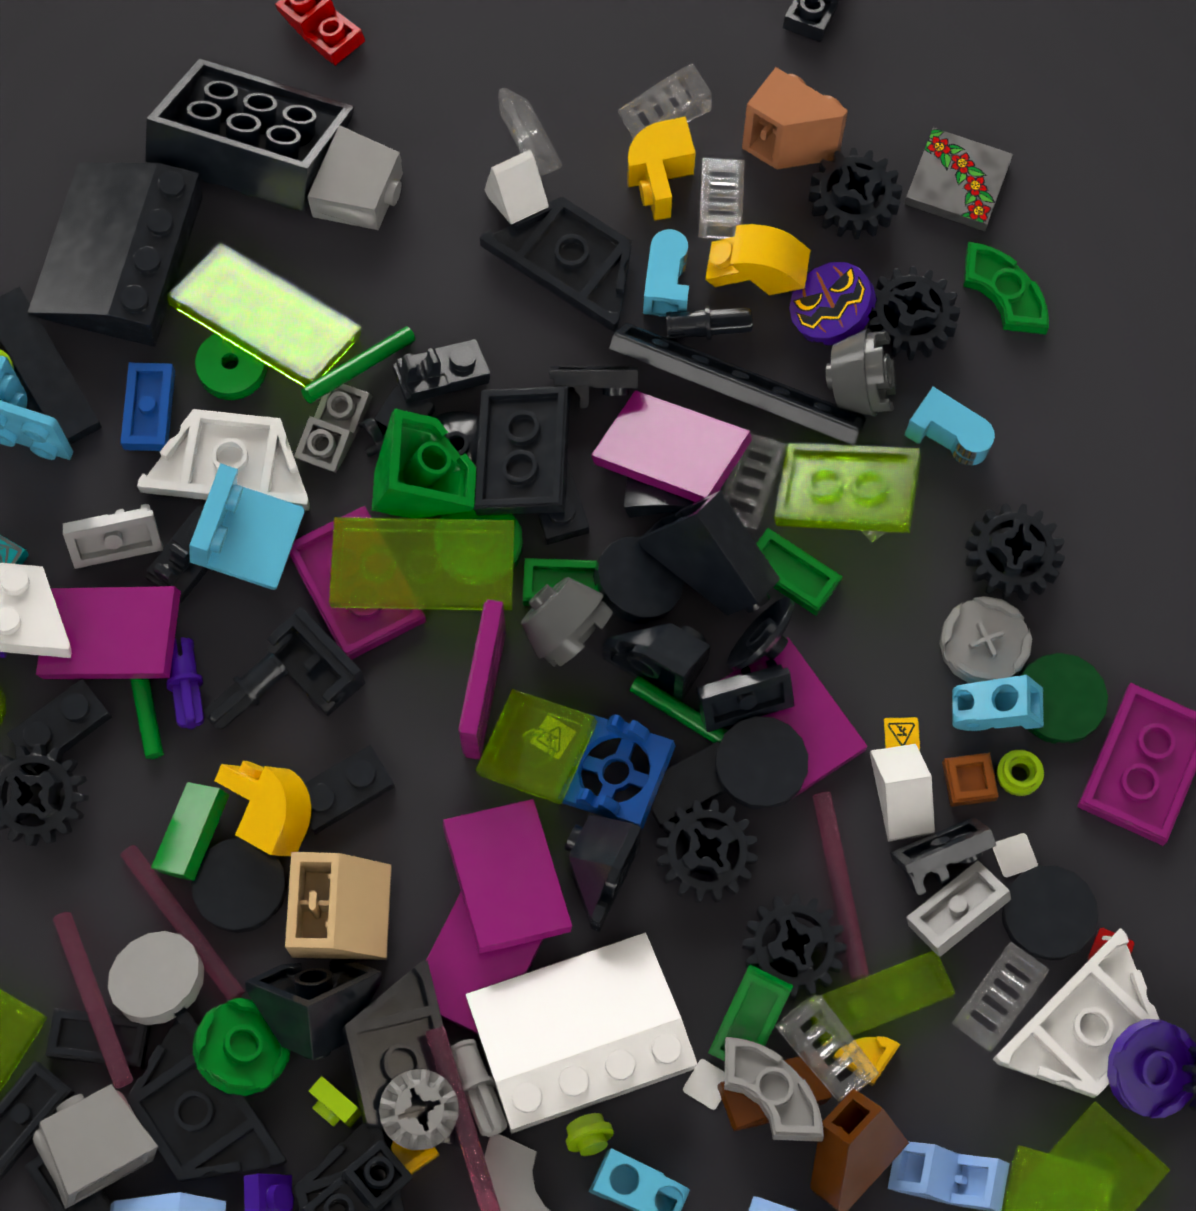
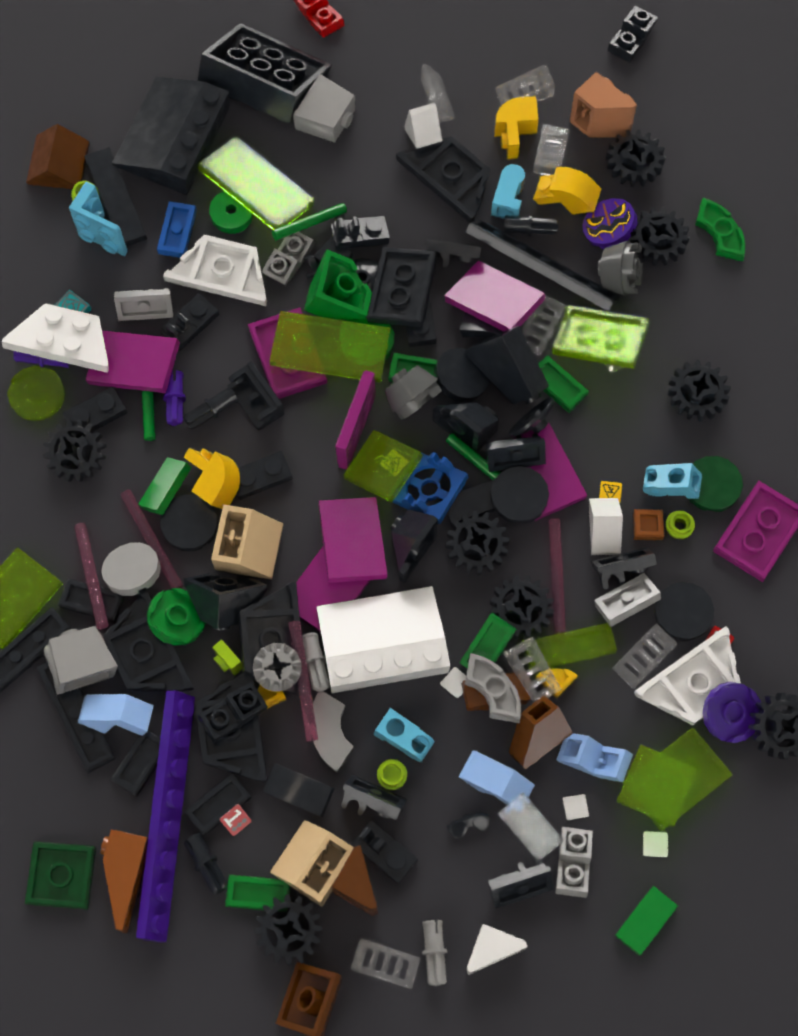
camera: 10 degrees right, 0 degrees up
(244, 531) = (224, 311): medium azure bracket -> none
(588, 1134) = (378, 699): lime plate -> none
(952, 427) = (672, 309): medium azure leg -> none
(958, 179) = (703, 158): flat silver tile -> none
(985, 640) = (672, 441): light grey tile -> none
(1015, 855) = (668, 574): white sticker -> none

